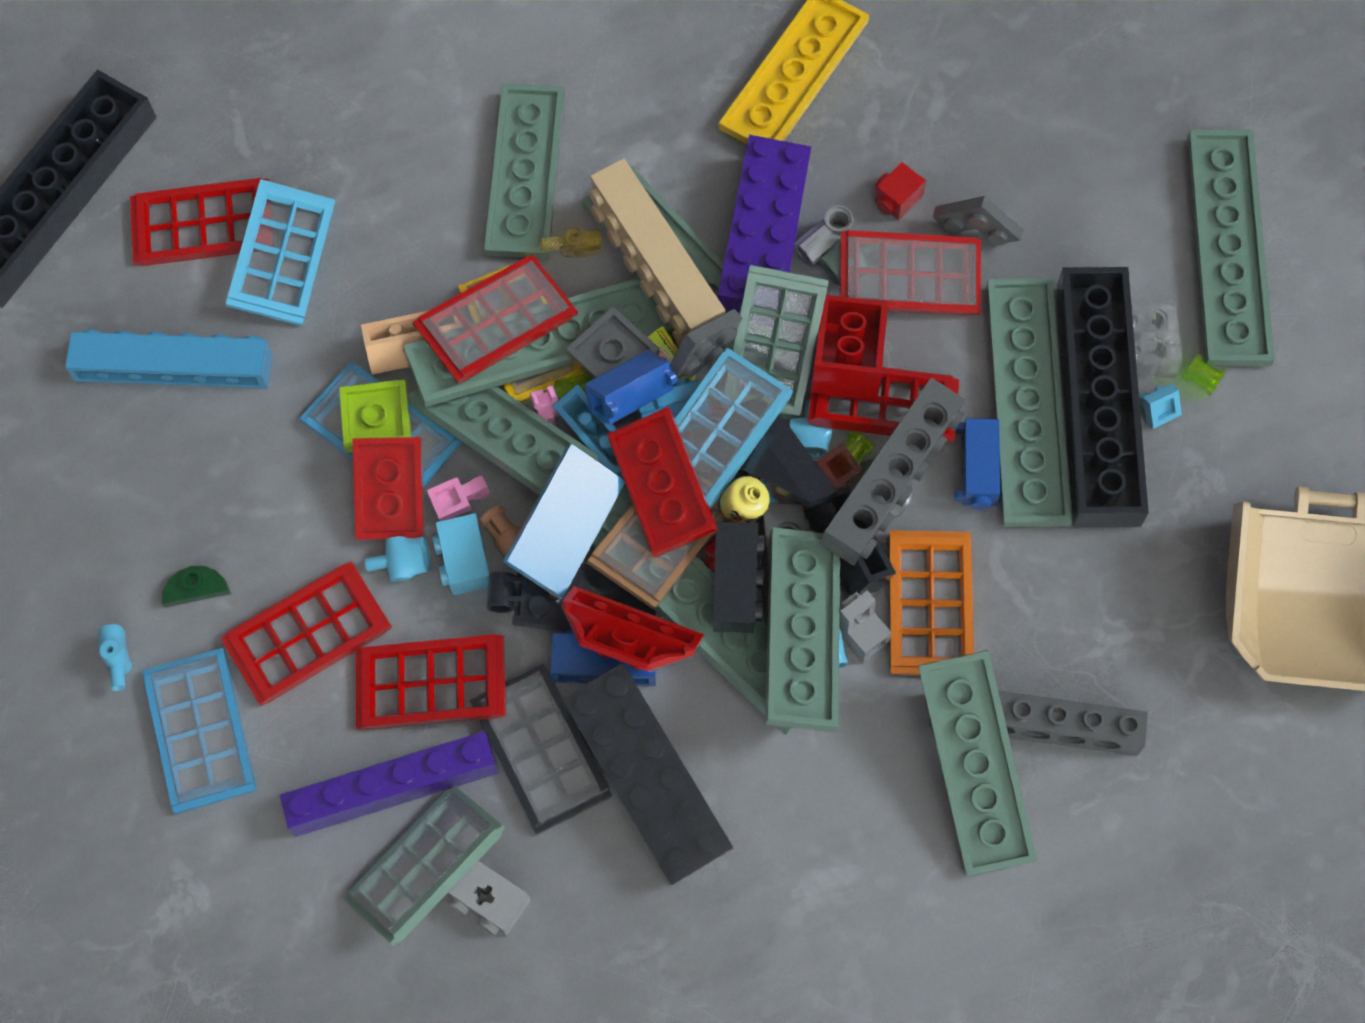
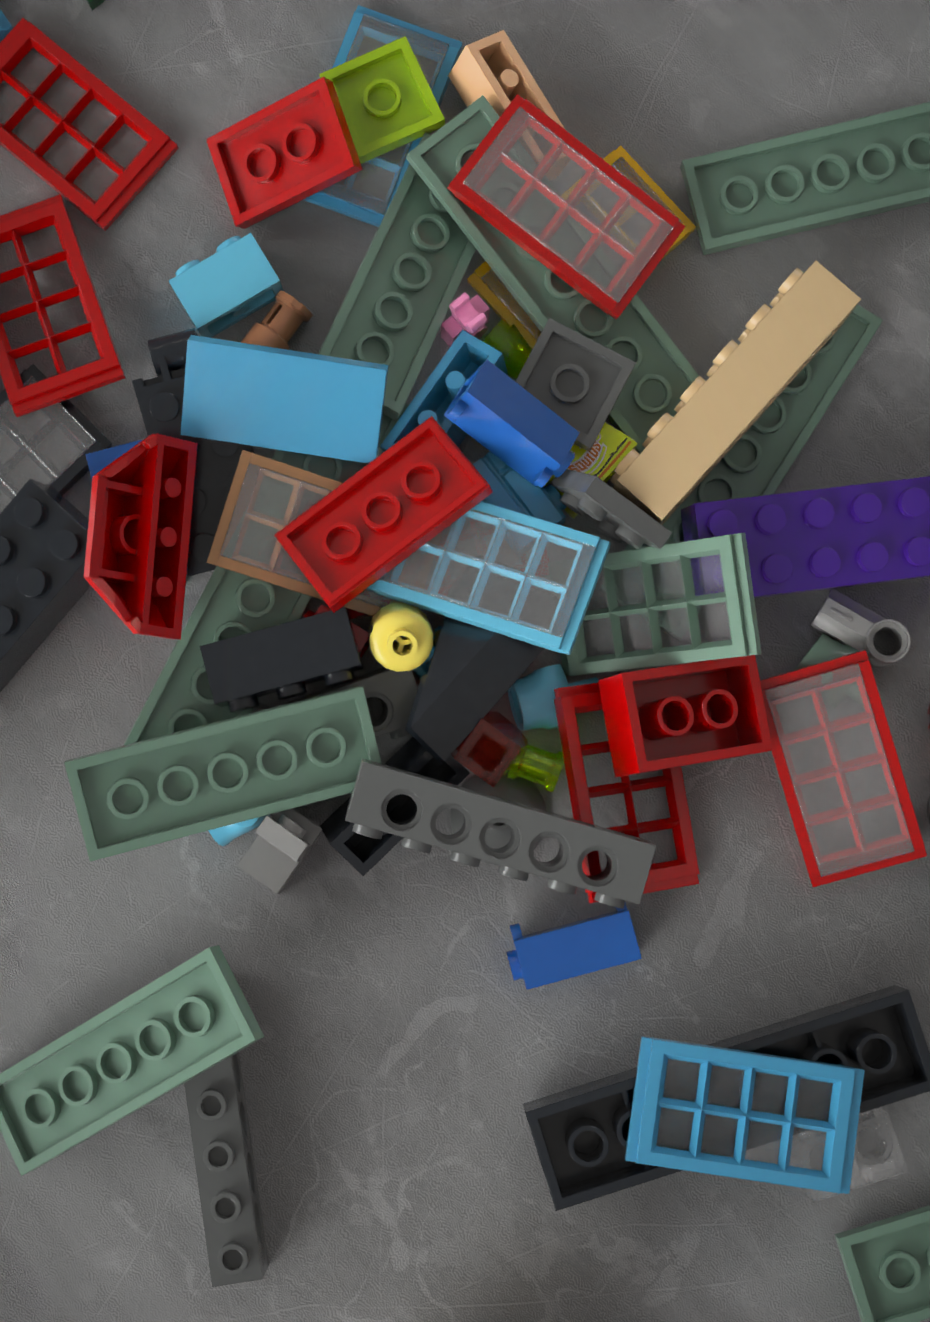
camera: 70 degrees right, 15 degrees up
(403, 558) = (199, 210): medium azure piece -> none
(453, 499) = (305, 246): bright pink plate -> none
(574, 243) = (736, 295): clear yellow piece -> none
(929, 598) = (350, 935): orange piece -> none
(1028, 403) = (696, 990): sand green plate -> none
(1115, 381) = (745, 1115): none -> dark azure piece
(1161, 405) = (745, 1194): medium azure tile -> none
(1213, 375) = (814, 1237): clear neon green bush -> none

